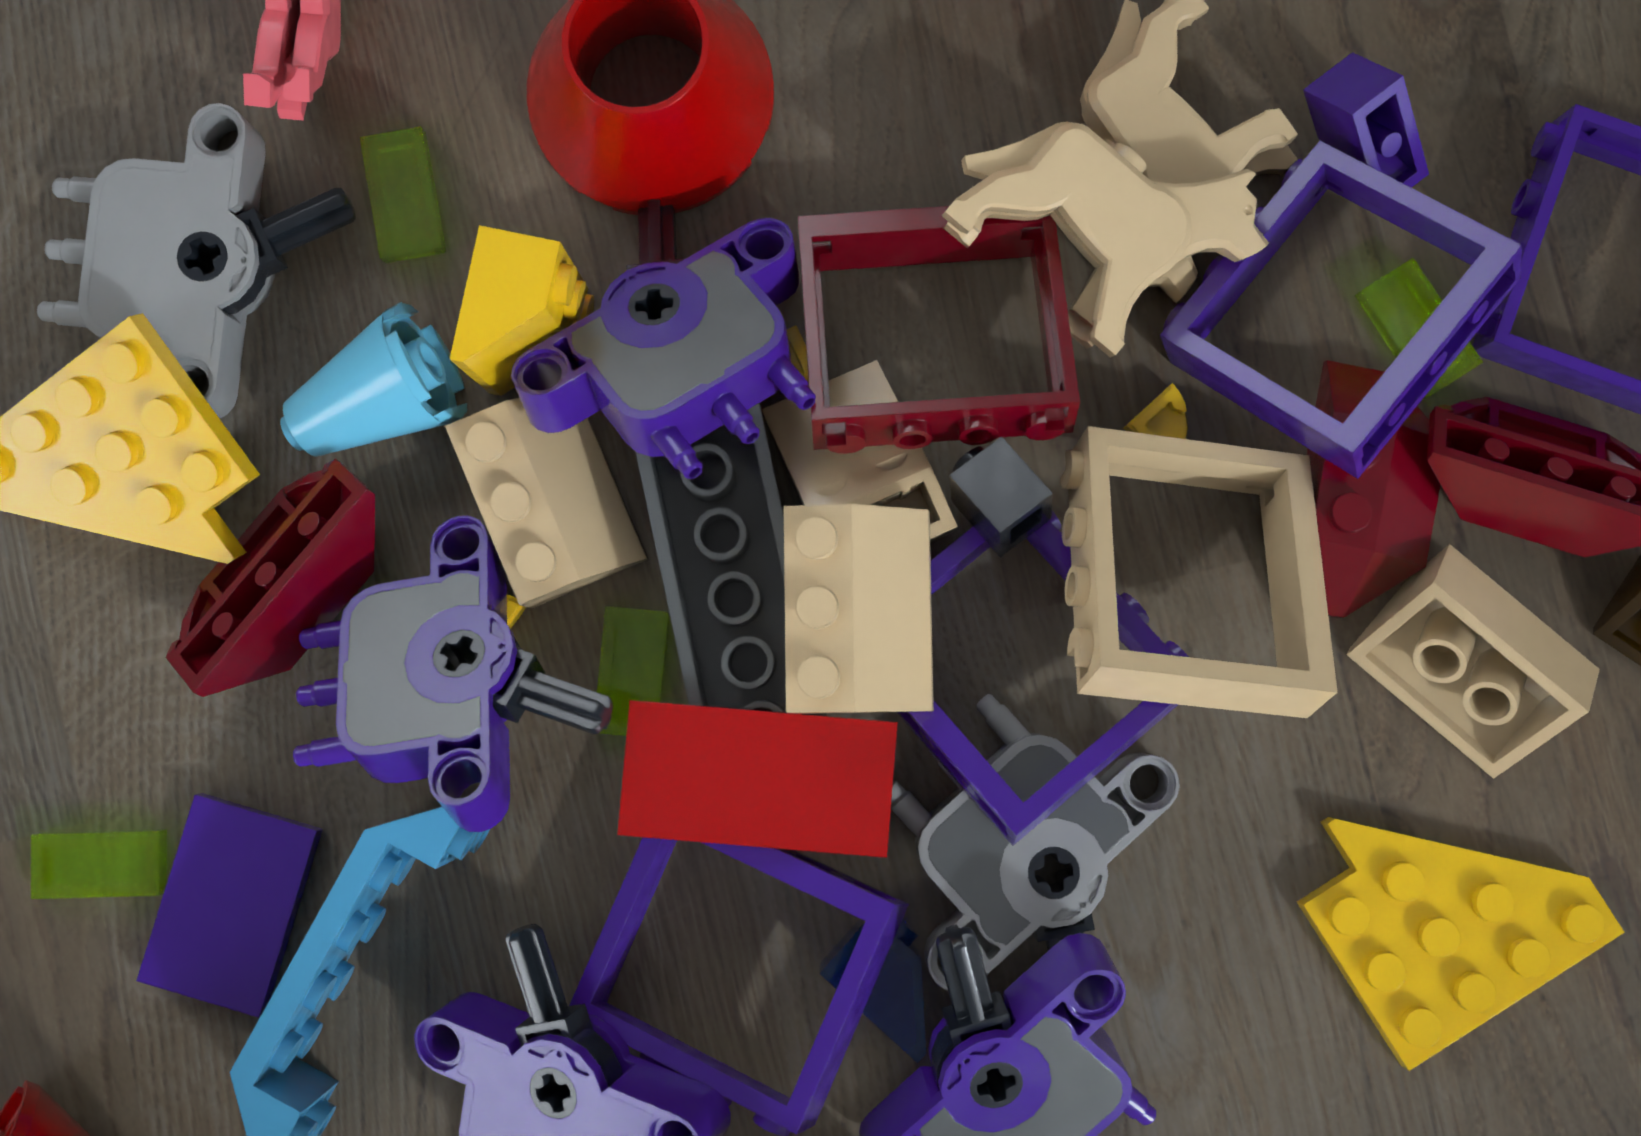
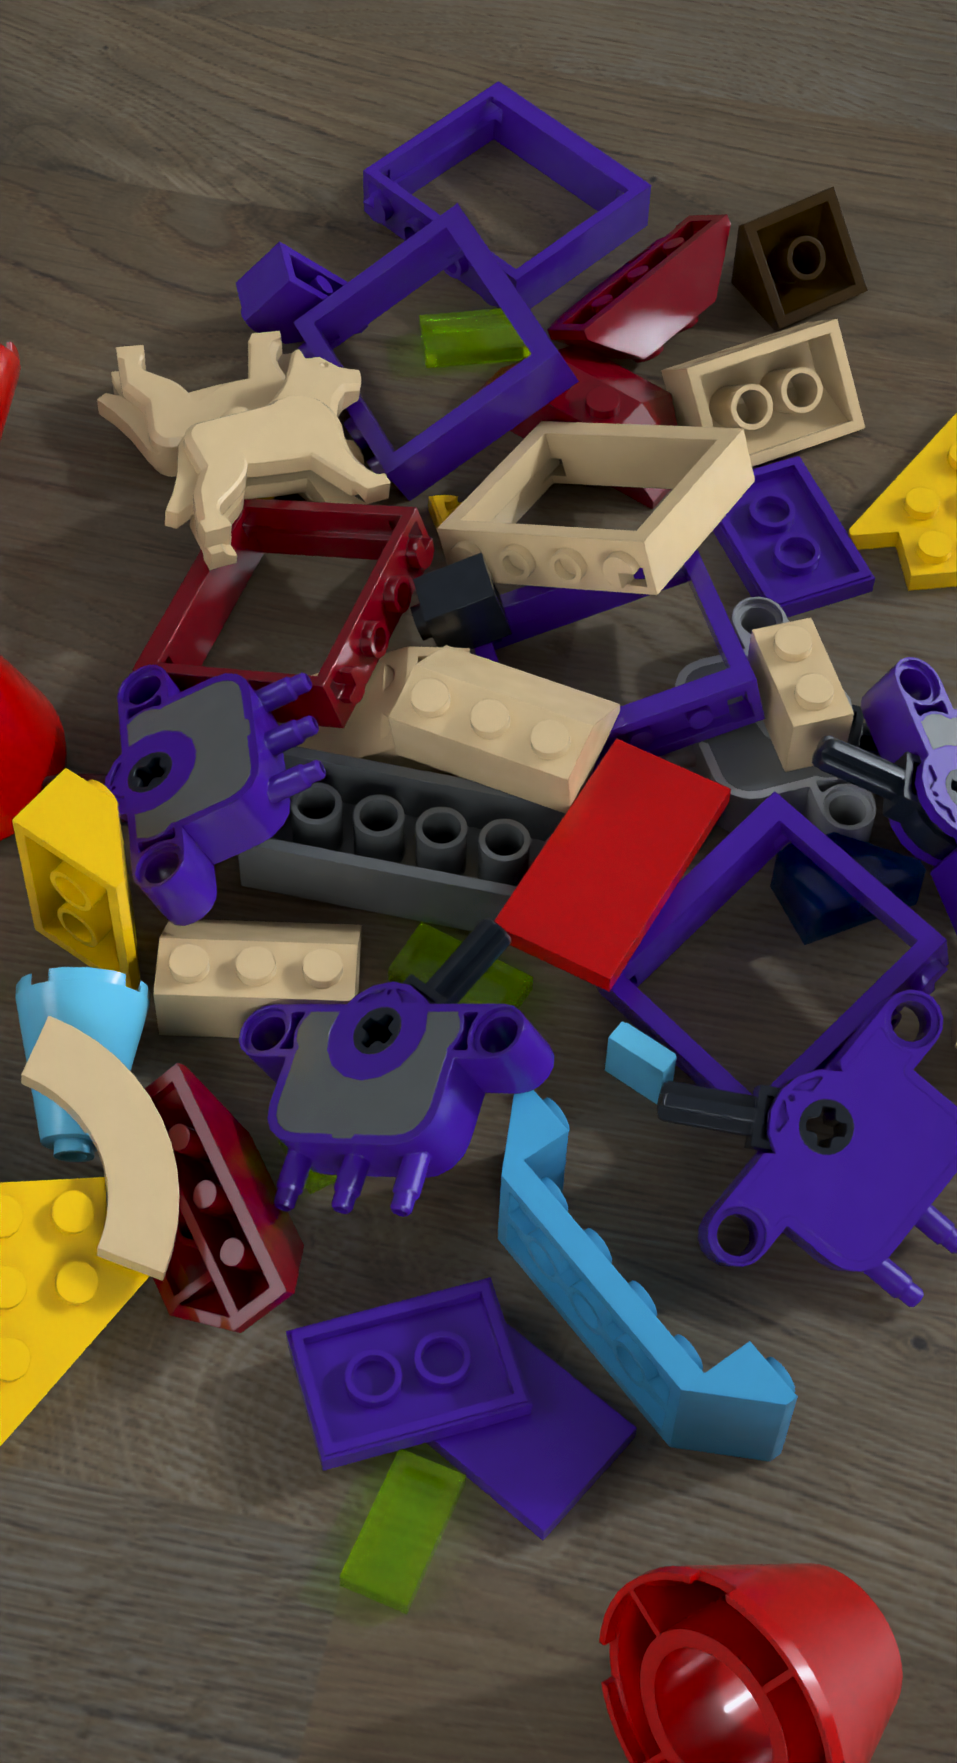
camera: 70 degrees left, 30 degrees down
(215, 811) = (407, 1373): none -> dark purple tile
(283, 479) = (128, 1138): none -> tan tile
(604, 876) = (639, 1061): none -> medium azure tile
(1046, 872) = (798, 690): none -> tan brick
(1291, 774) = (791, 542): none -> dark purple tile

